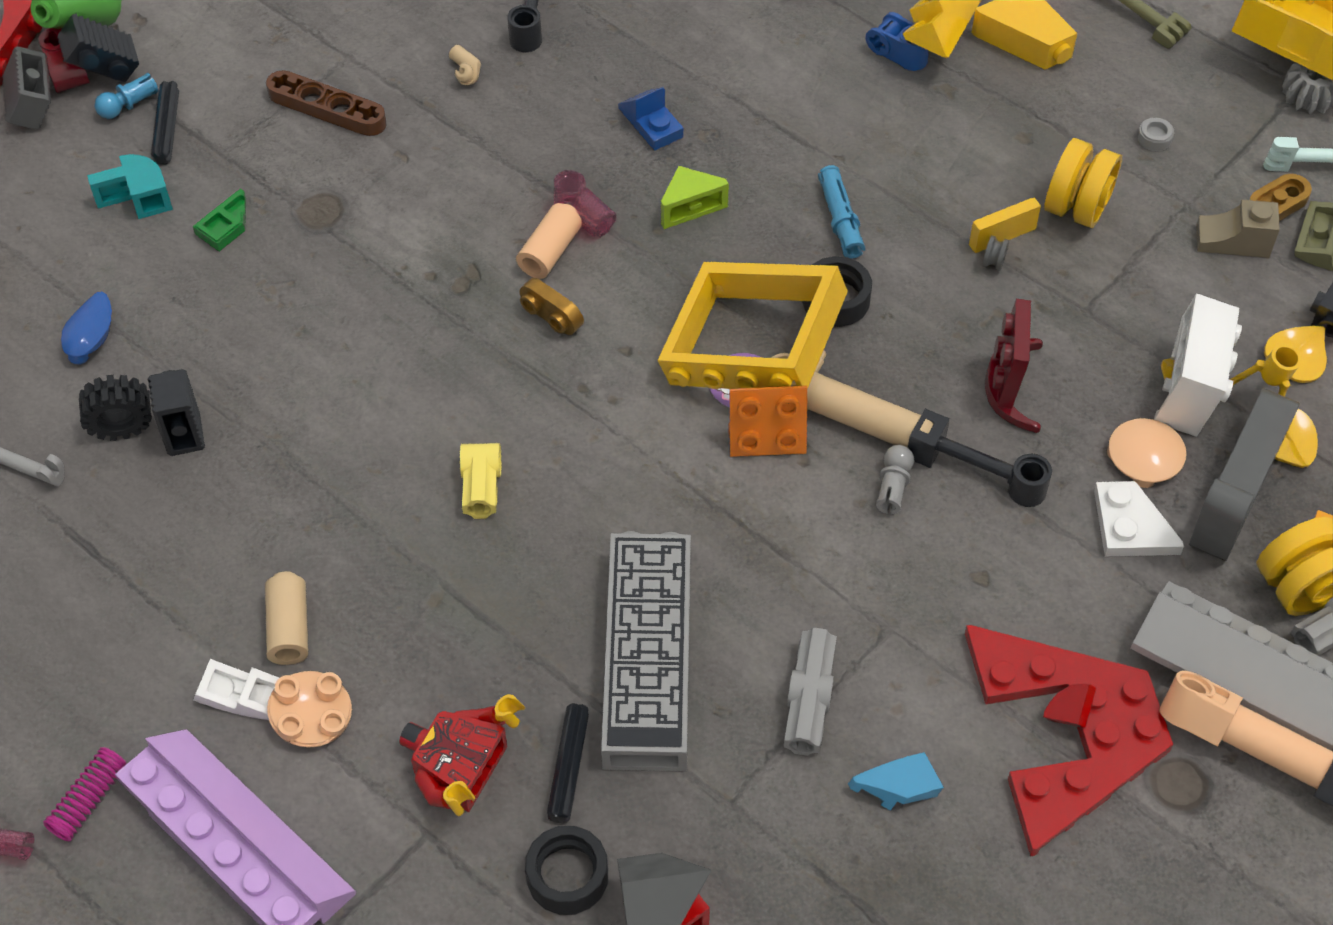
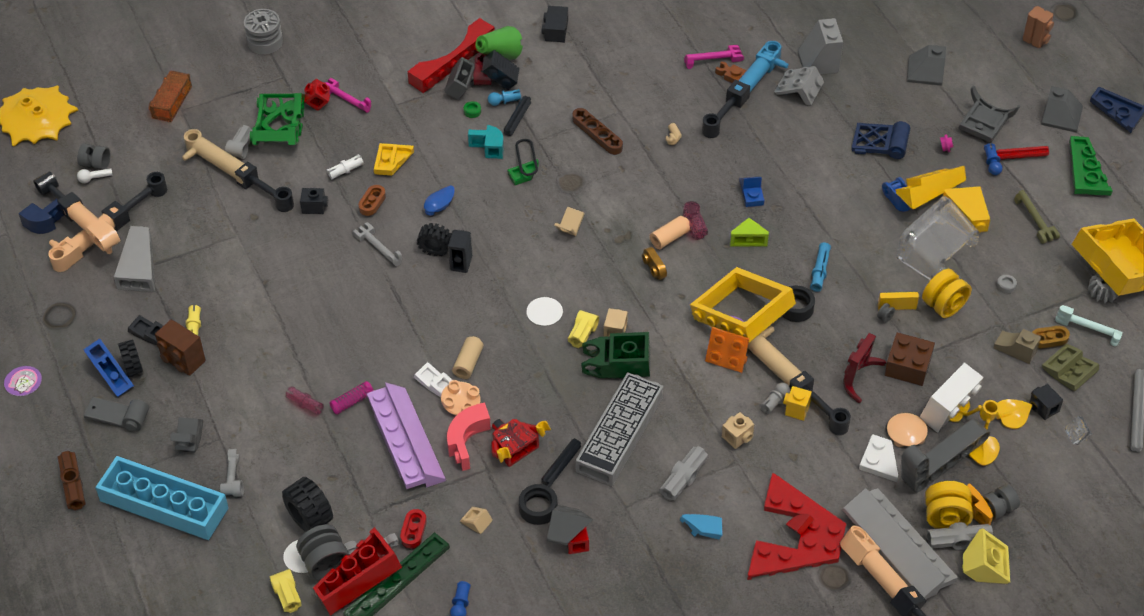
camera: 25 degrees right, 5 degrees down
(74, 138) = (472, 109): none -> green tile
(230, 183) = (519, 159): none -> black piece
(347, 755) = (463, 426): none -> coral arch
(358, 282) = (571, 221): none -> tan bracket
(388, 470) = (544, 311): none -> white sticker
(537, 447) = (615, 321): none -> tan brick
(576, 506) = (618, 355): none -> dark green brick
(866, 567) = (738, 430): none -> tan brick
(941, 474) = (797, 403): none -> yellow brick
(1011, 98) = (936, 238): none -> clear windscreen
(1083, 321) = (909, 359): none -> reddish brown brick

